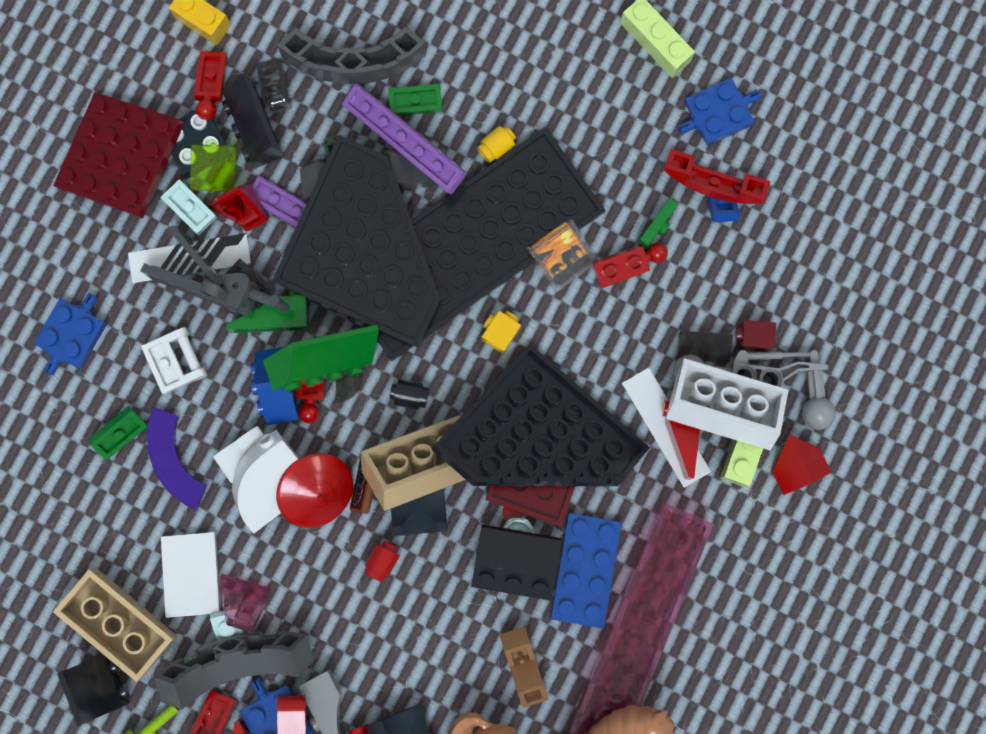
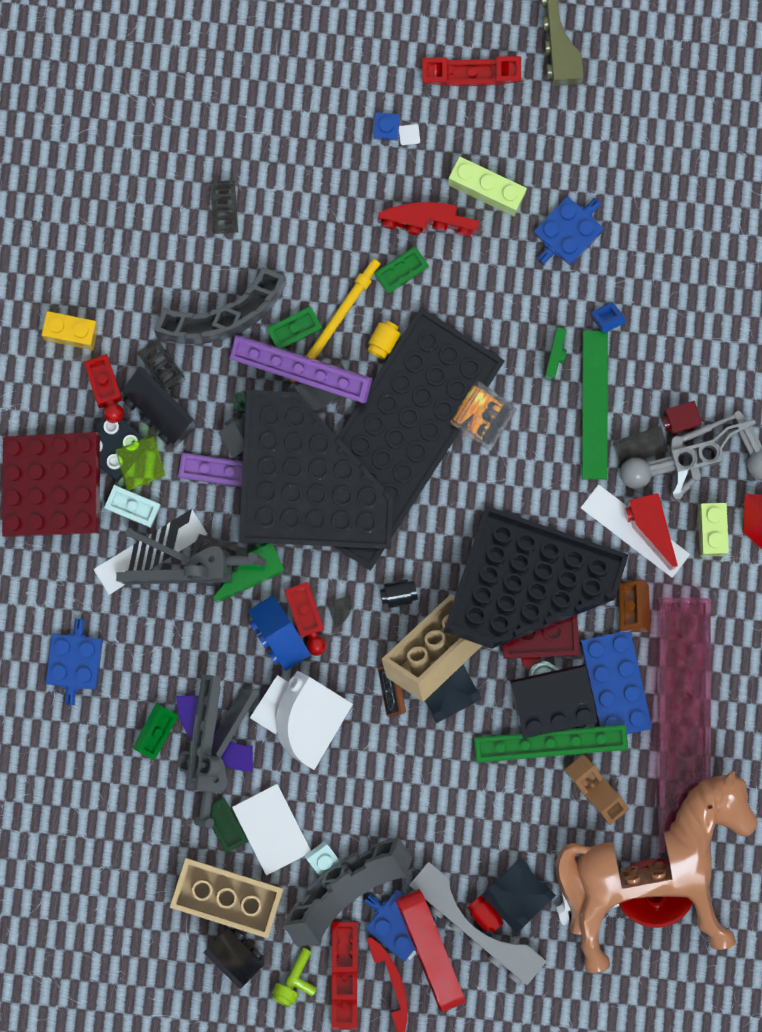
camera: 25 degrees left, 0 degrees up
(147, 481) = (204, 761): none -> dark grey piece
(147, 551) = (226, 826): none -> dark green tile
(166, 365) = (171, 654): white plate -> none
(241, 207) = (179, 488): red slope -> none
(242, 602) = (328, 833): clear pink wing -> none
(314, 490) = (351, 711): red hat -> none
(322, 359) = (313, 593): green slope -> none
(381, 561) = (435, 749): red brick -> none
(498, 82) = (362, 283): none -> yellow bar
(498, 604) = (551, 744): none -> green tile
(501, 330) = (456, 504): yellow brick -> none
(541, 85) = (401, 270): none -> green plate
(579, 39) = (417, 217): none -> red slope
(628, 263) = (543, 400): red plate -> none
(635, 501) = (634, 606): none -> dark orange slope
(676, 289) = (594, 405): none -> green tile
(714, 183) = (591, 297): red slope -> none
(727, 404) = (680, 490): white brick -> none

